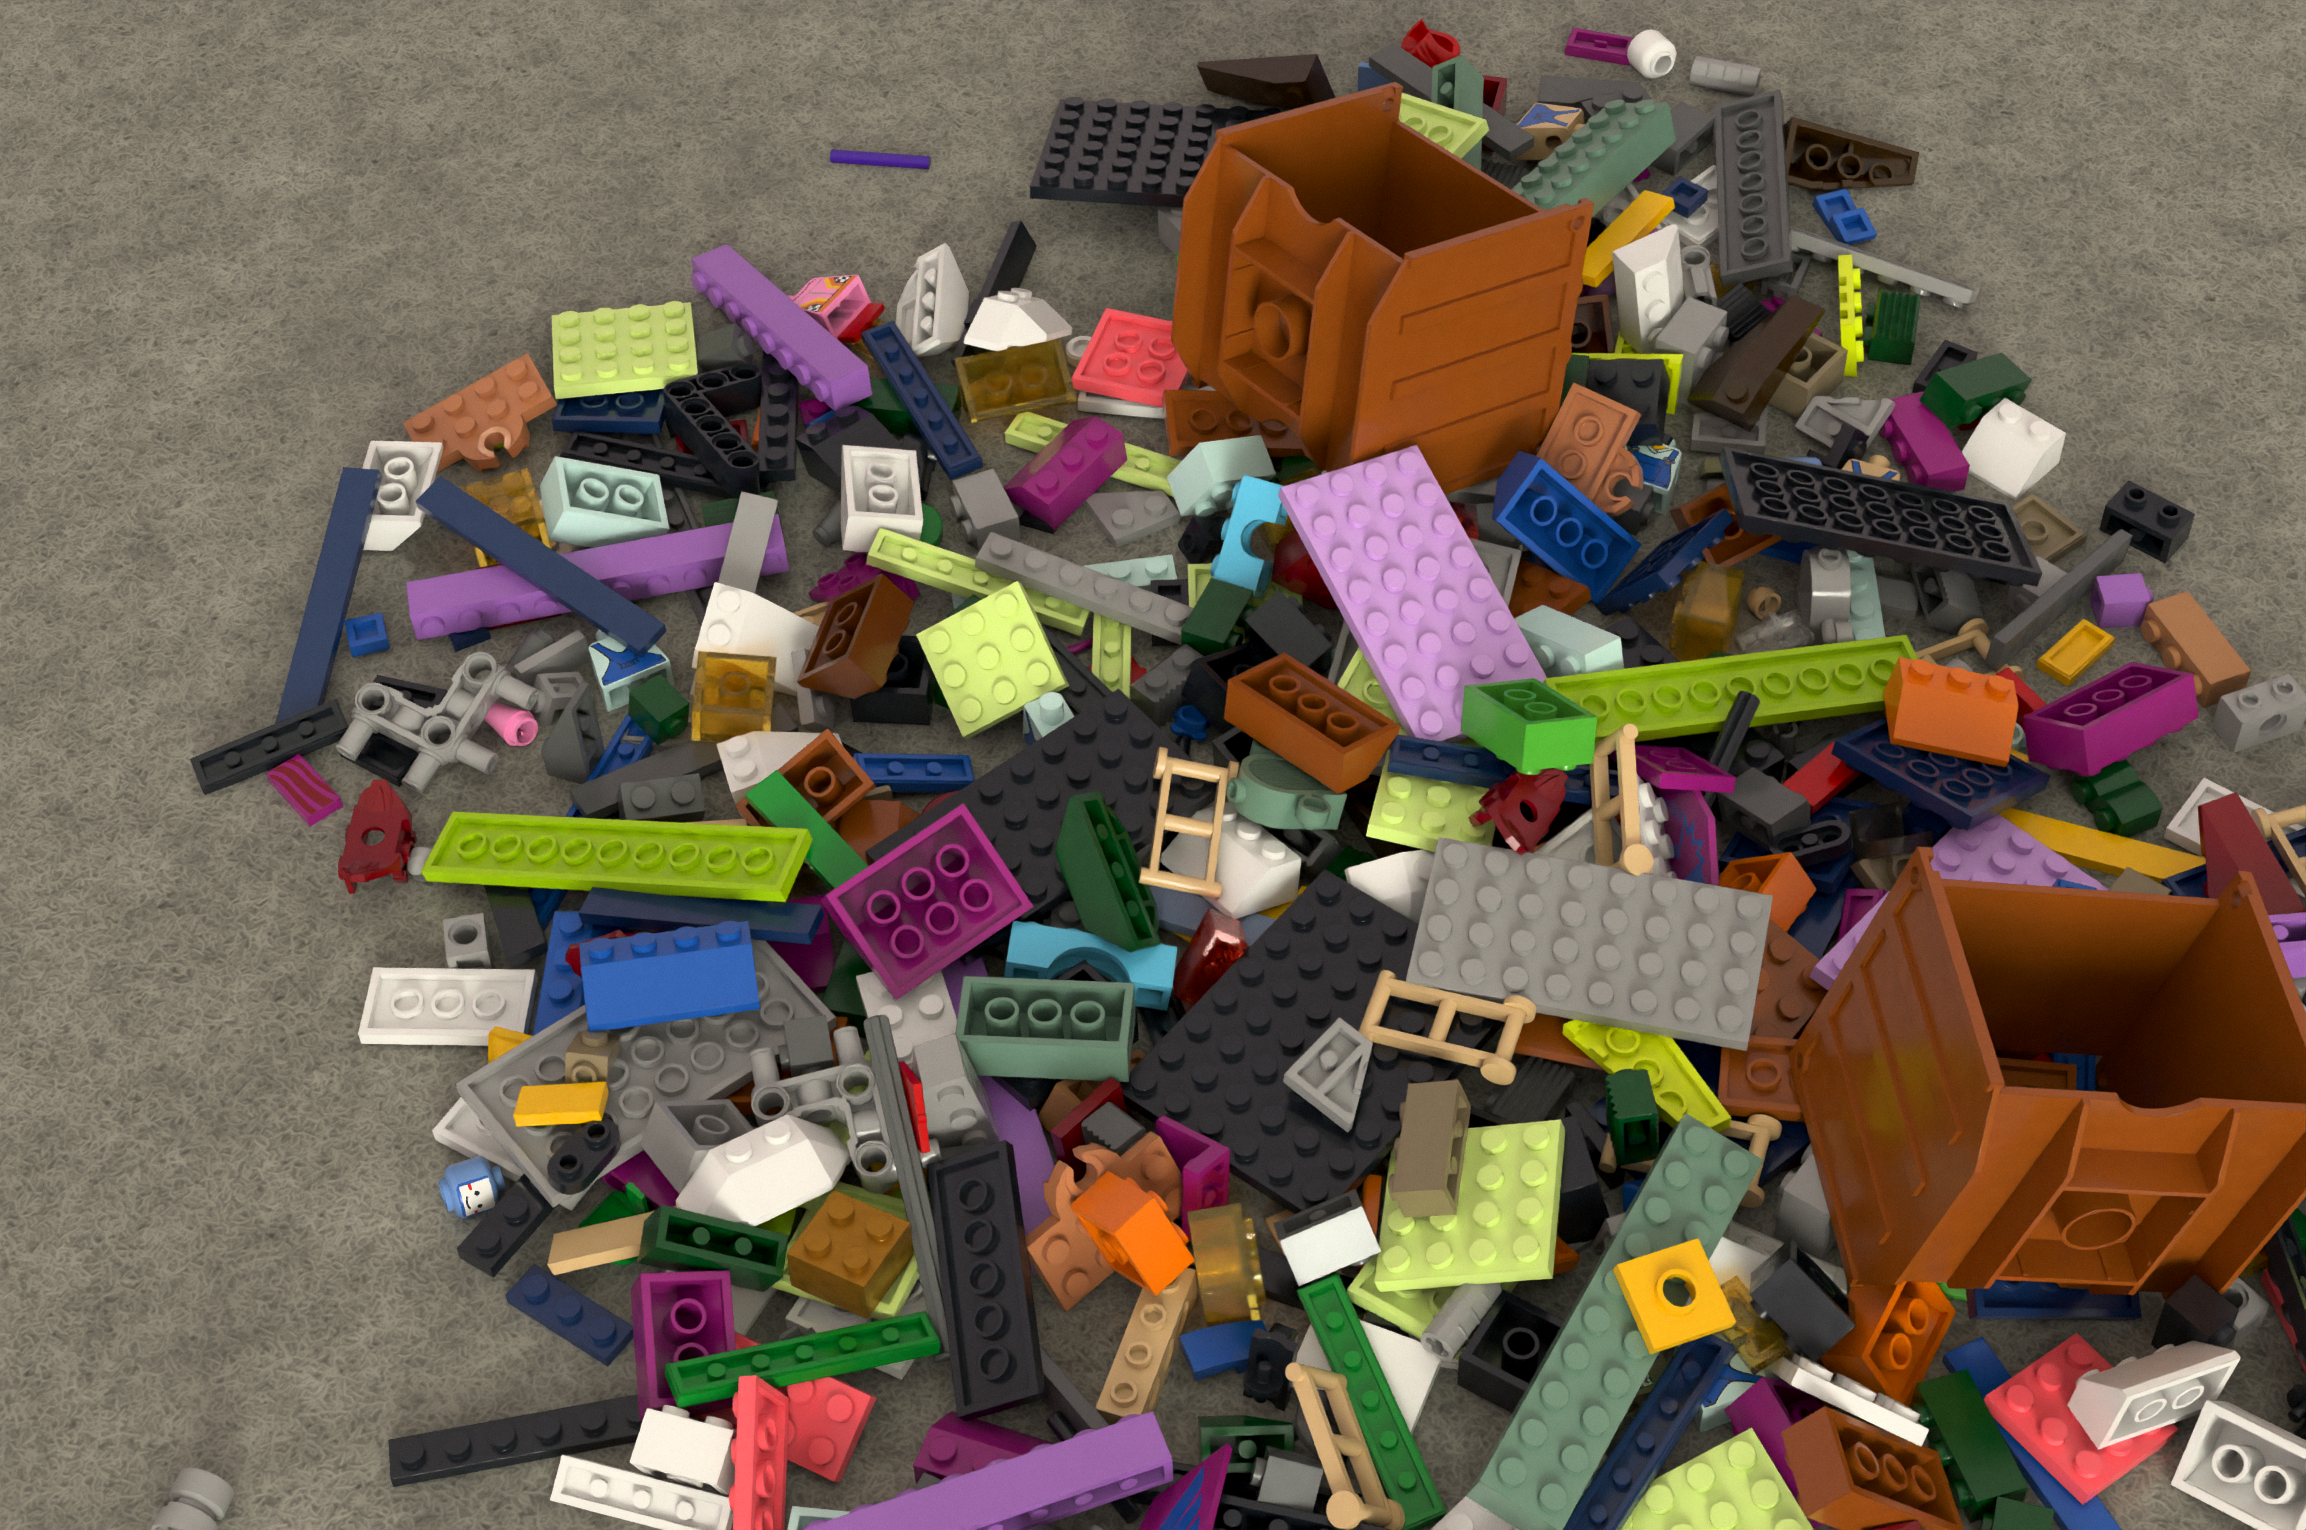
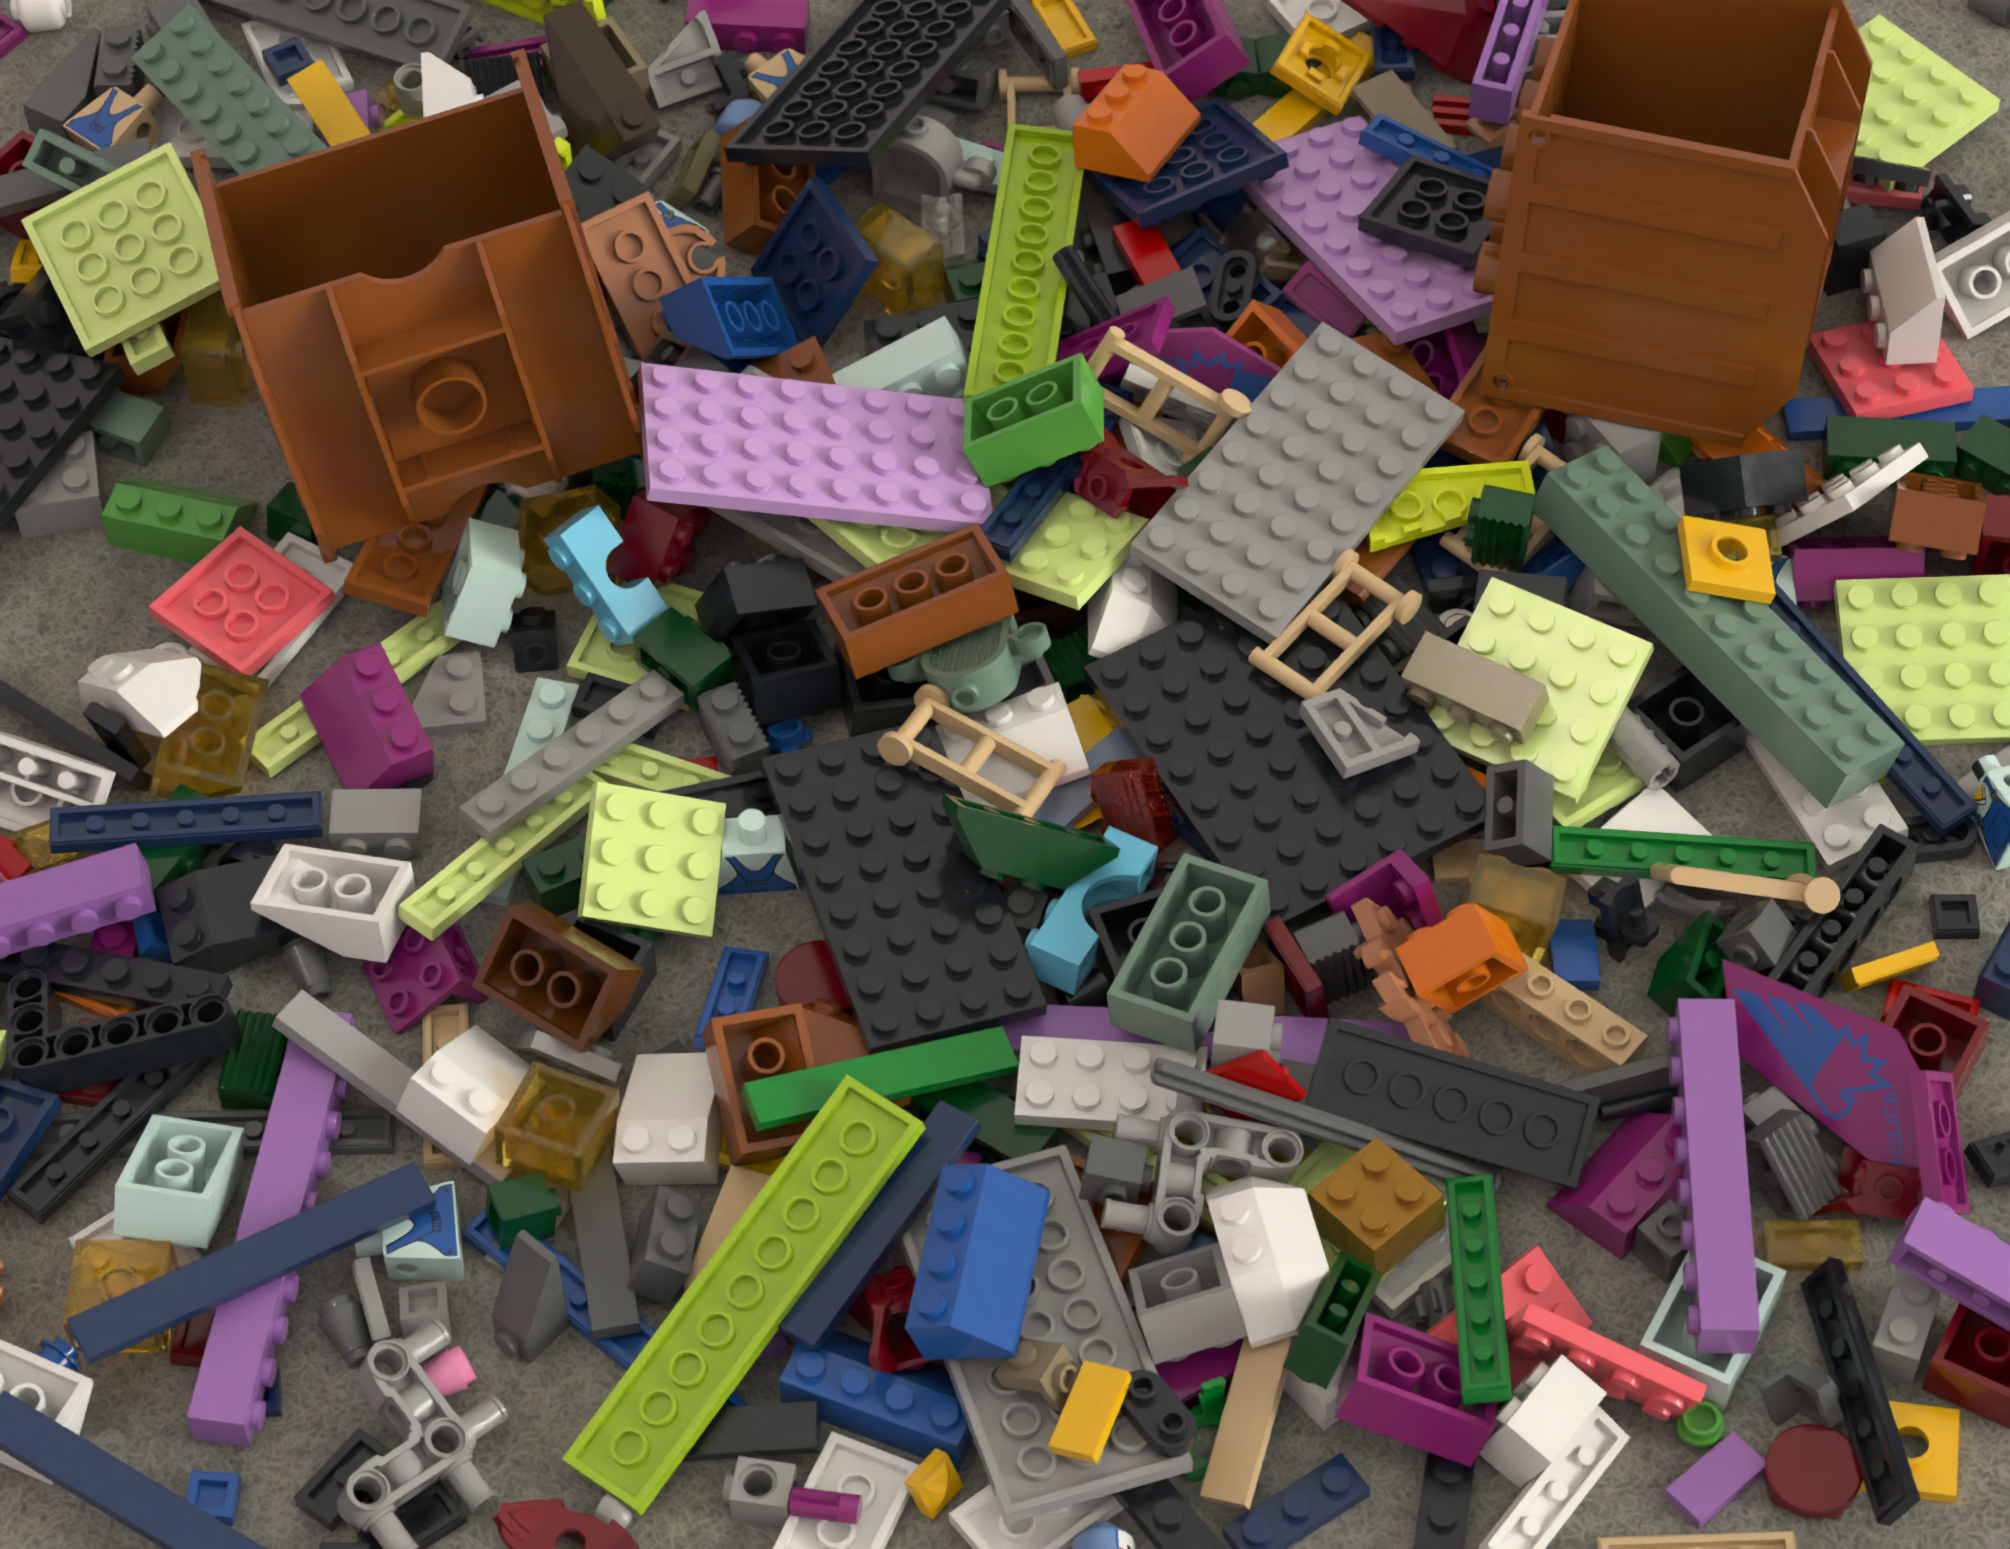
camera: 70 degrees left, 5 degrees up
(459, 984) = (825, 1505): none -> magenta piece
(927, 902) = (979, 1004): magenta slope -> none
(2159, 815) = (1341, 56): none -> yellow piece

